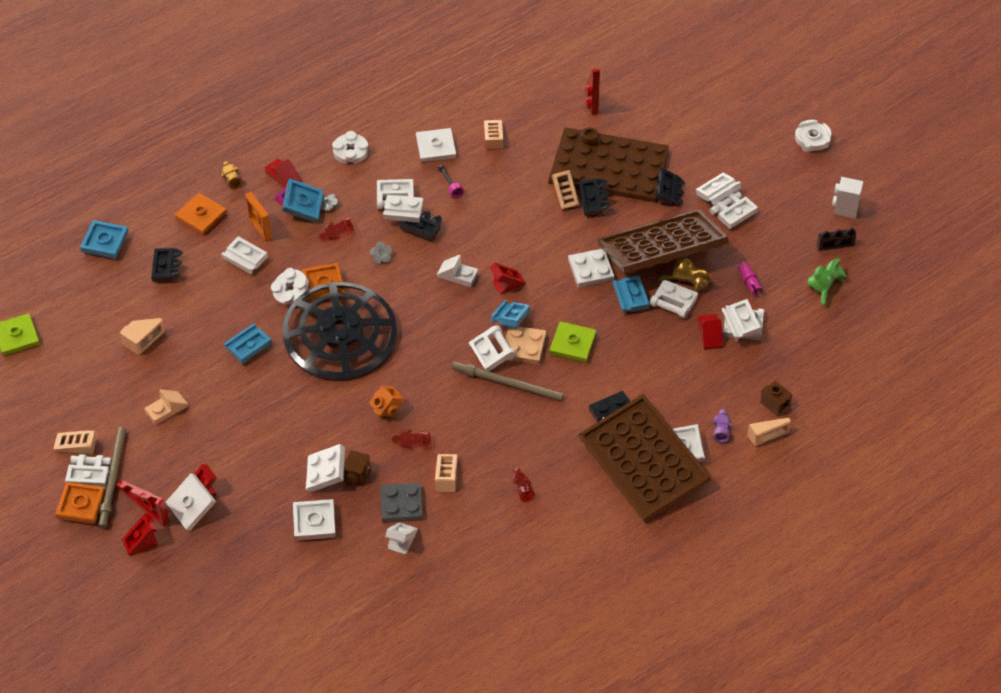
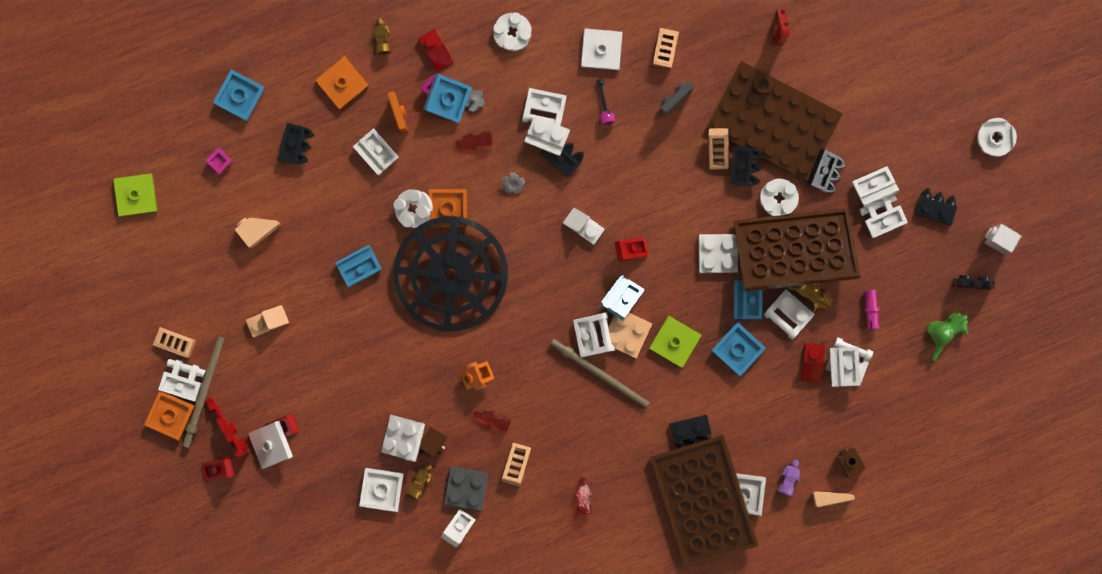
camera: 15 degrees right, 35 degrees up
(94, 290) = (219, 160): none -> dark pink plate
(350, 513) = (421, 478): none -> pearl gold piece
(514, 157) = (681, 92): none -> dark grey plate
(635, 333) = (738, 349): none -> dark azure plate
(637, 208) = (772, 189): none -> white plate
(780, 197) = (936, 208): none -> black plate

